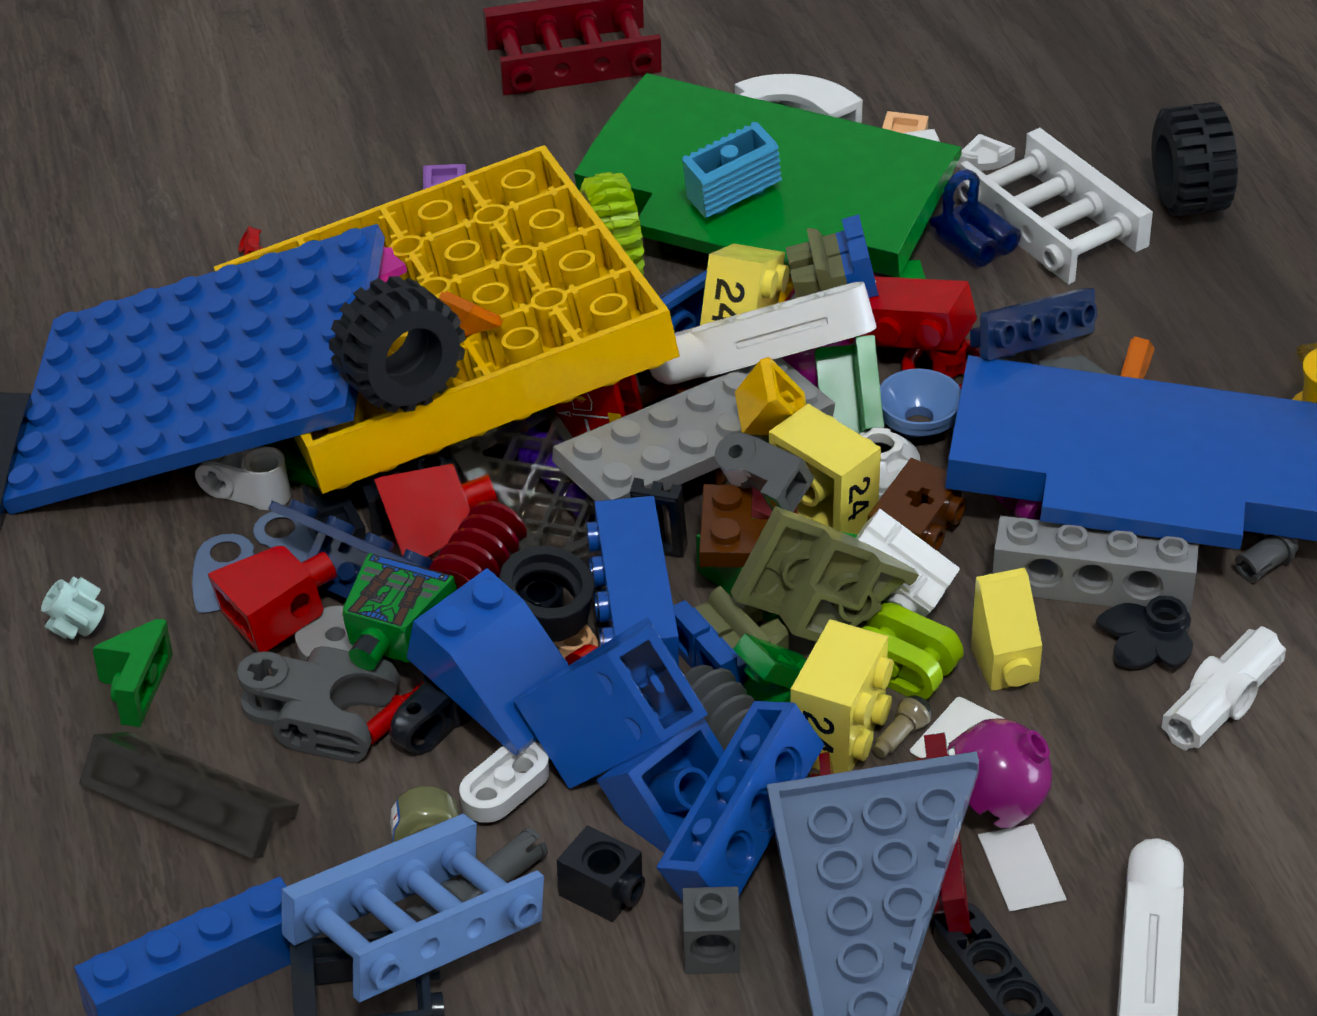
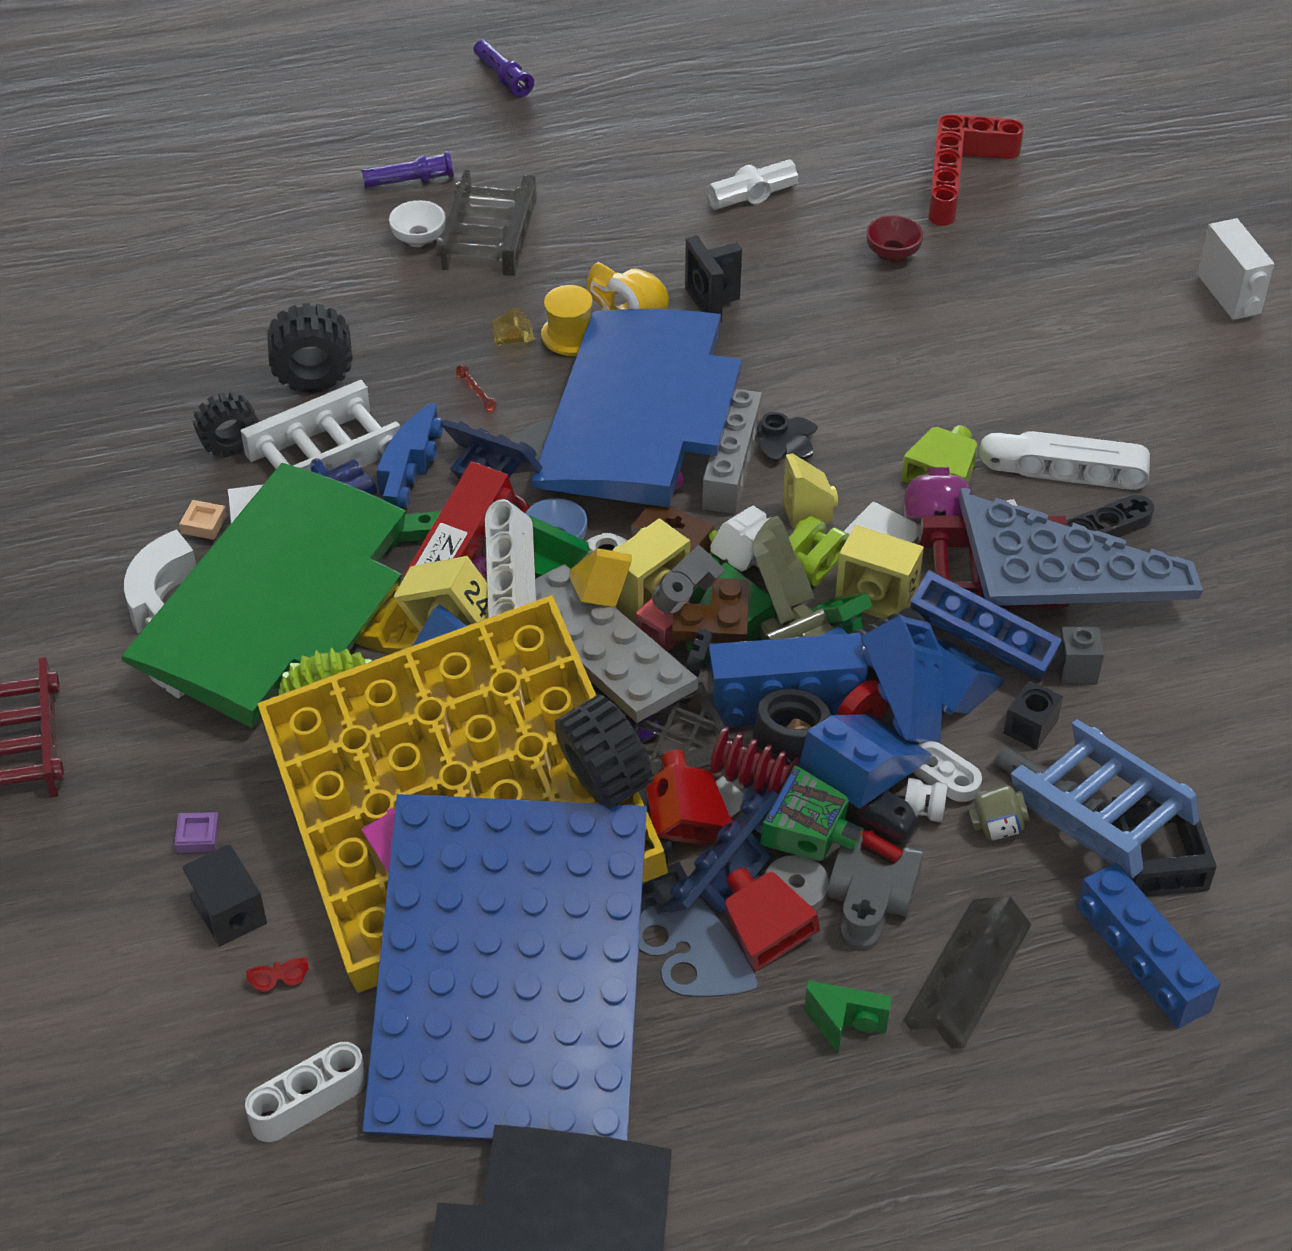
camera: 90 degrees left, 5 degrees up
(72, 608) = (784, 1071): light aqua gear -> none
(96, 266) = (296, 1109): none -> white beam
(339, 188) = (225, 895): none -> black piece
(451, 752) = (916, 798): none -> white wheel
(472, 317) = (527, 729): orange slope -> none
(731, 169) = (312, 585): dark azure brick -> none
(832, 260) = (426, 537): olive hips -> none
(987, 153) = (233, 476): white tile -> none
(1027, 271) = (409, 455): none -> blue slope
(1055, 111) = (218, 412): none -> black tyre
(1115, 800) = (941, 449): none -> lime torso
(1138, 358) = (512, 413): orange tile -> none
(1165, 347) = (463, 372): none -> clear red hinge
(1223, 688) = (841, 405): white piece -> none

